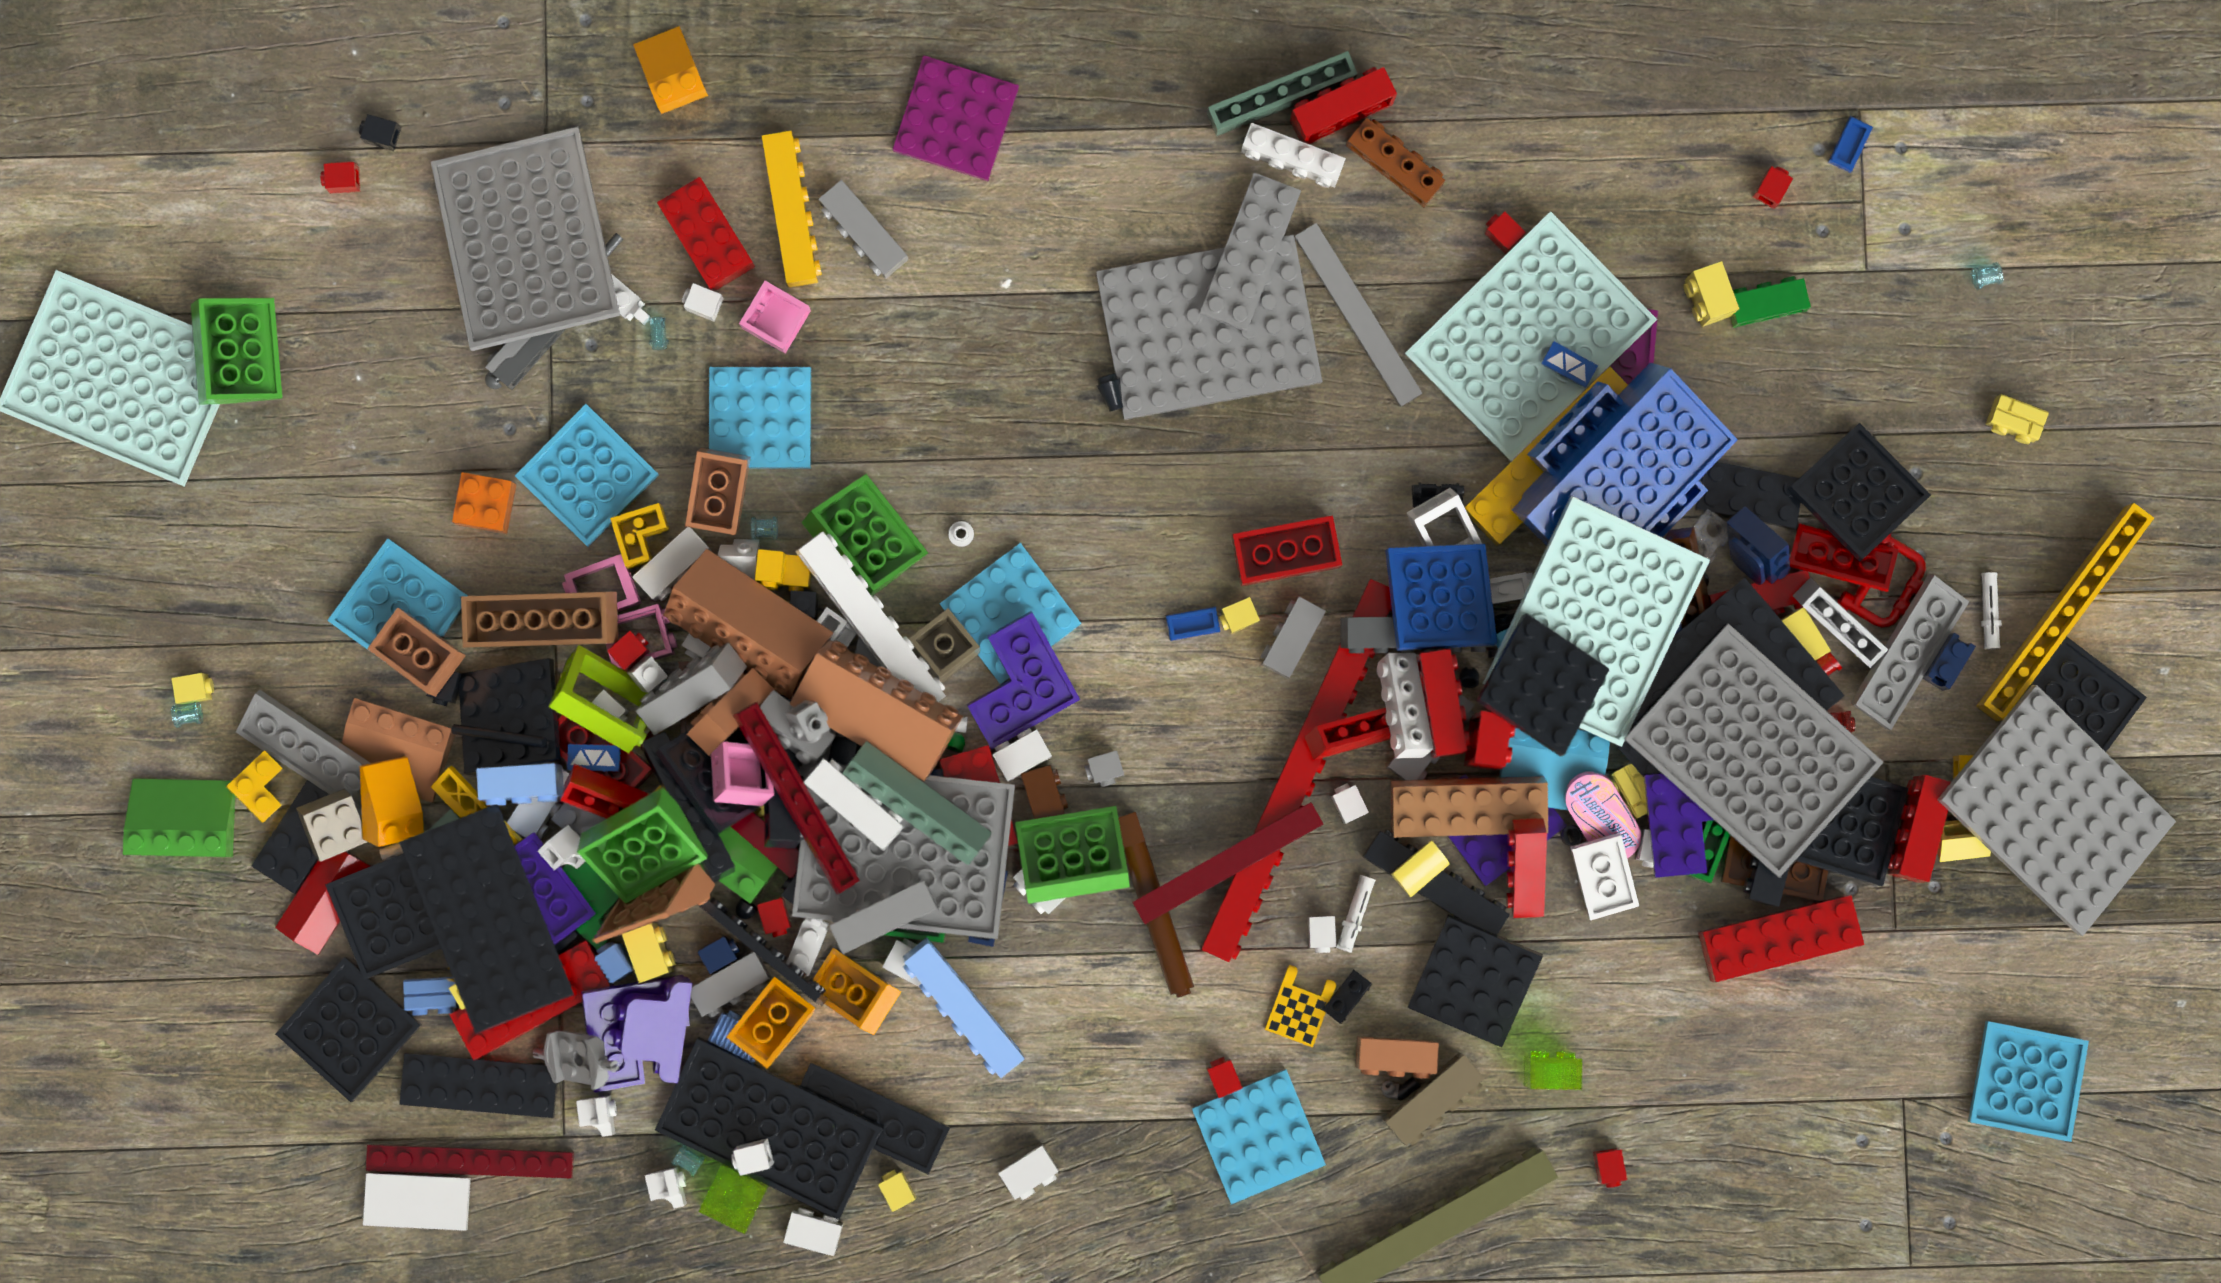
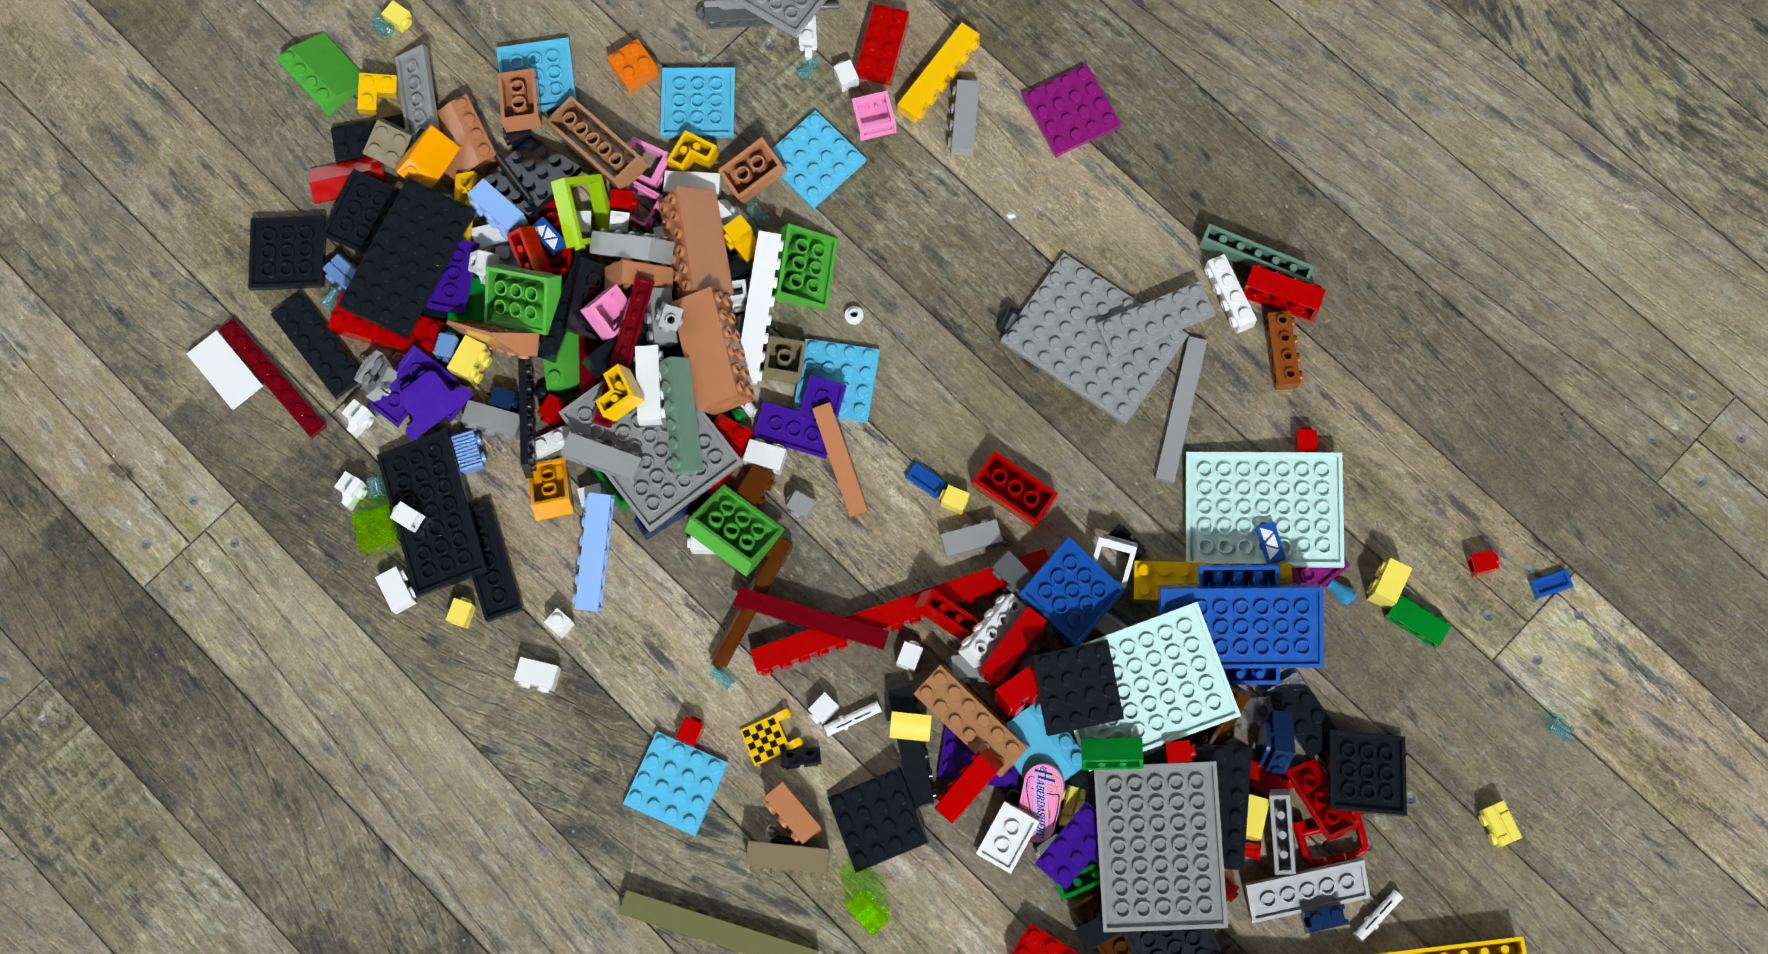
camera: 55 degrees right, 10 degrees down
(443, 1029) = (331, 299): none -> clear light blue bush
(771, 1022) = (490, 458): light orange slope -> none
(845, 838) = (623, 393): none -> yellow brick
(998, 1105) = (559, 623): none -> white brick
(1096, 687) = (840, 459): none -> nougat tile
(1200, 999) = (721, 677): none -> clear light blue pin
(1630, 711) = (1112, 753): none -> green brick
(1675, 343) = (1342, 592): none -> dark azure cone
(1687, 647) = (1180, 751): none -> red brick

